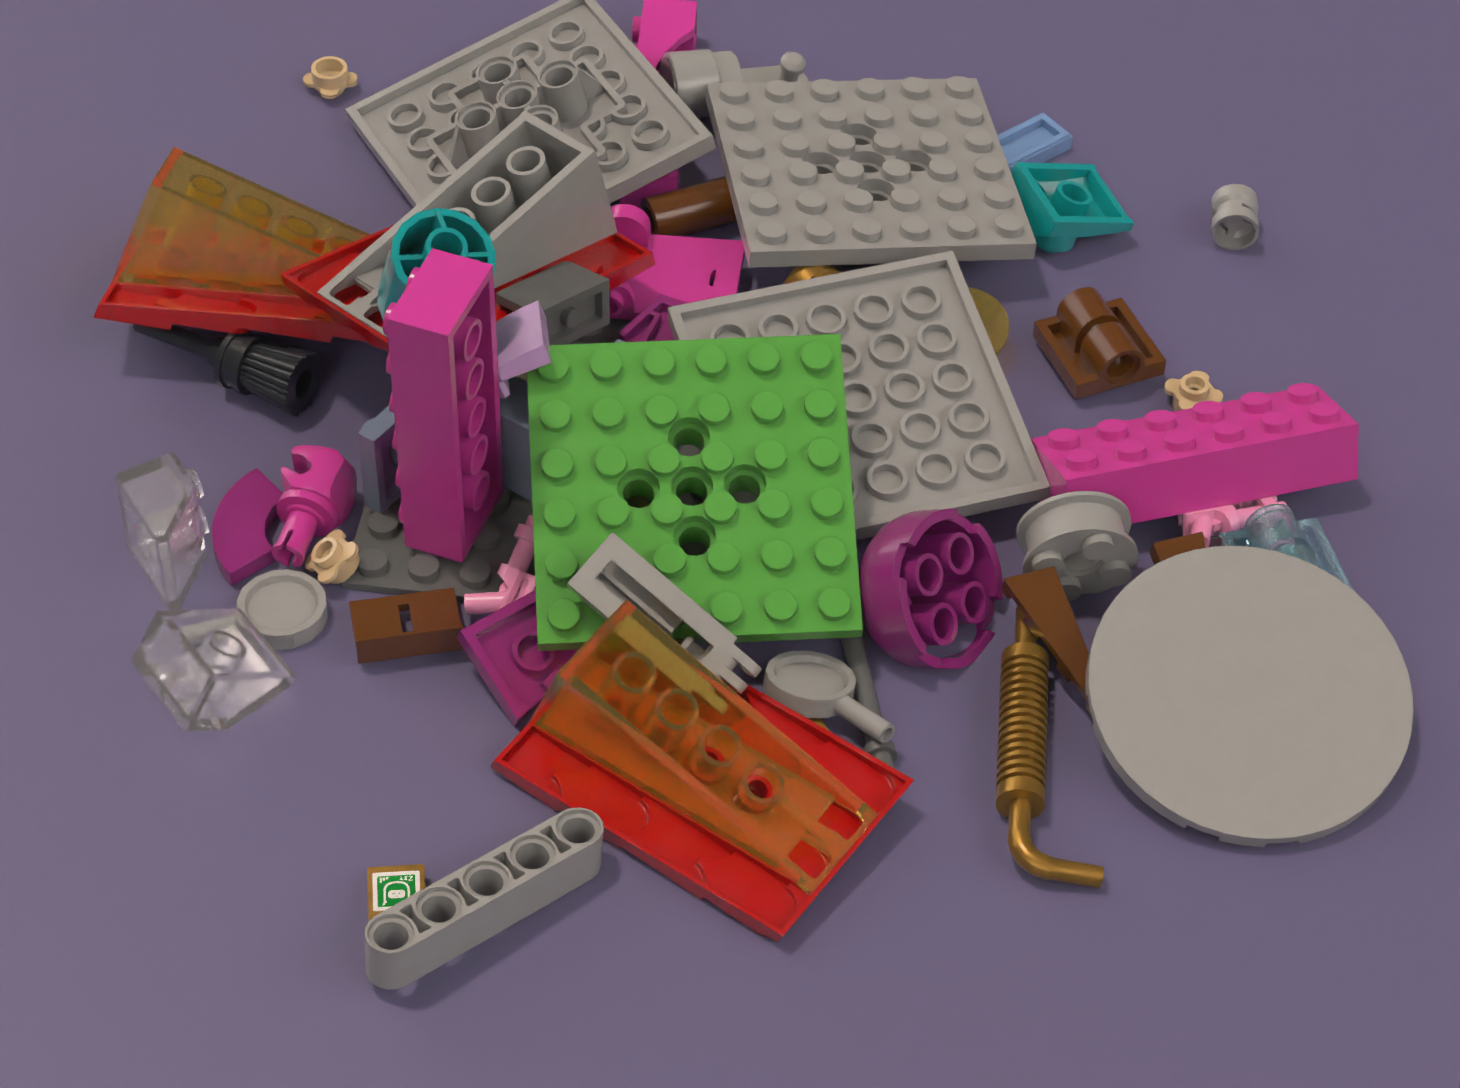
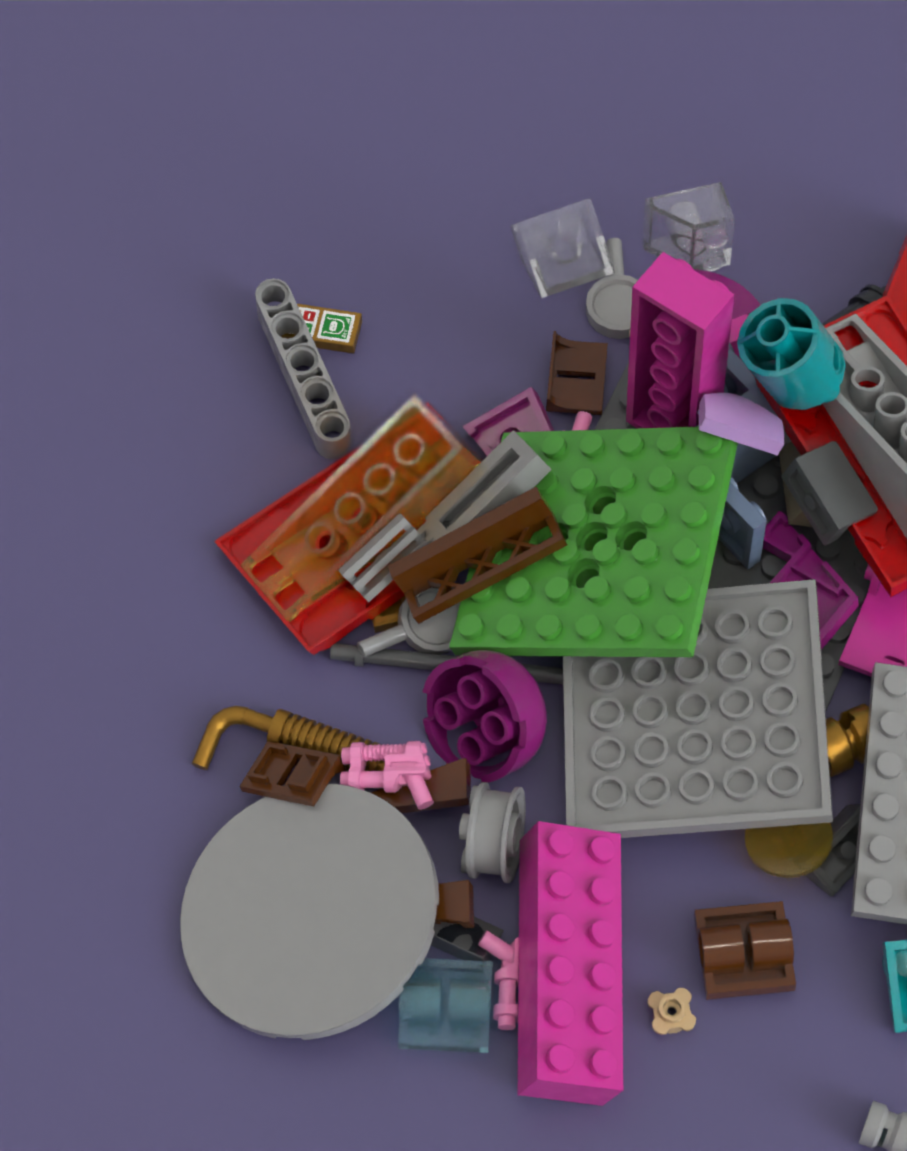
camera: 110 degrees right, 15 degrees up
(738, 607) = (475, 547): none -> reddish brown fence
(772, 704) = (383, 577): none -> light grey tile
(1041, 631) = (403, 766): none -> bright pink piece
(1087, 778) = (305, 783): none -> reddish brown piece

